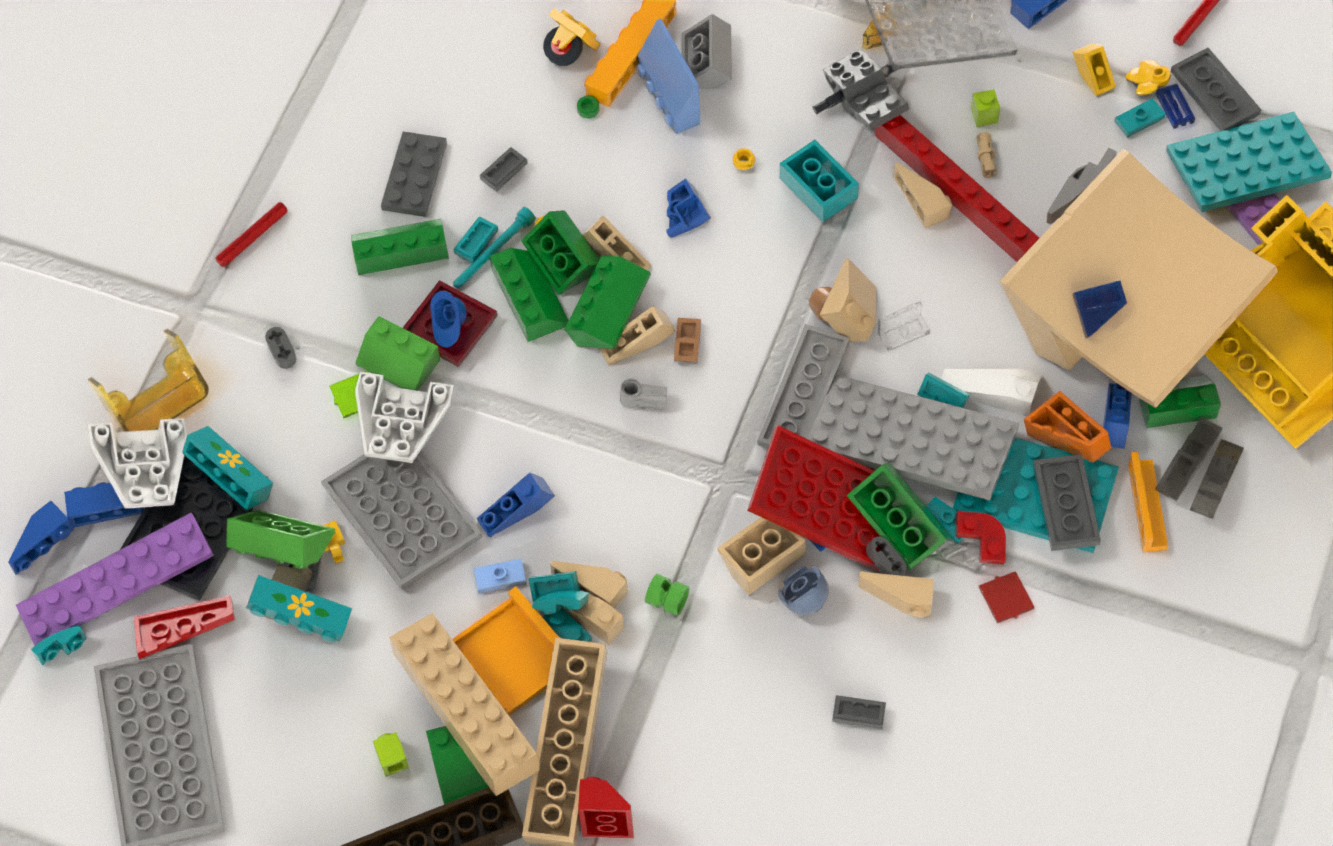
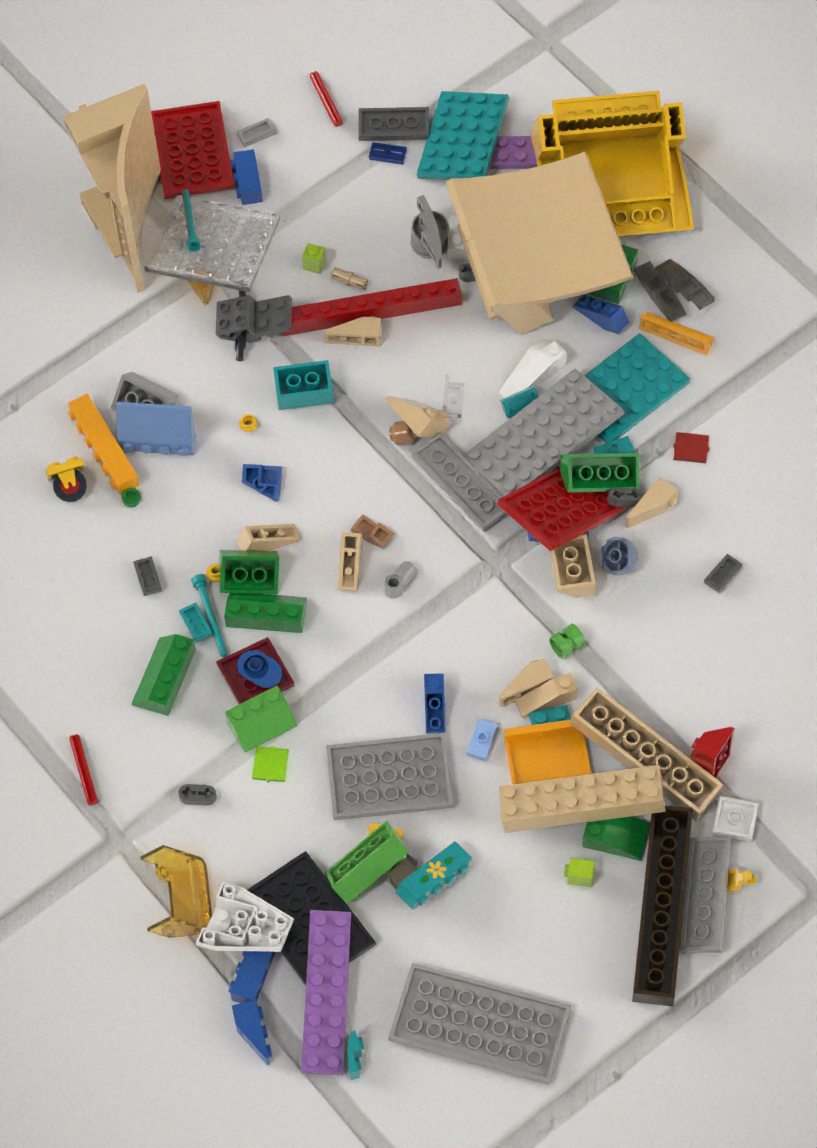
camera: 60 degrees left, 0 degrees up
(174, 625) = (389, 968): wing -> none
(227, 467) = (287, 869): teal brick -> none
(398, 420) = (319, 737): white wedge -> none
(414, 174) = (107, 637): dark grey plate -> none
(551, 583) = (517, 706): teal plate -> none
(556, 600) = (531, 711): teal slope -> none
(607, 303) = (313, 562): green slope -> none
(988, 530) = (641, 430): red plate -> none
(1066, 502) = (651, 373): dark grey plate -> none
(1068, 428) = (598, 342): orange wedge -> none
(1094, 68) = (326, 179): yellow slope -> none
(1098, 305) = (544, 263): clear blue wing -> none
(1139, 117) = (382, 177): teal plate -> none
(1149, 77) = (352, 155): yellow plate -> none

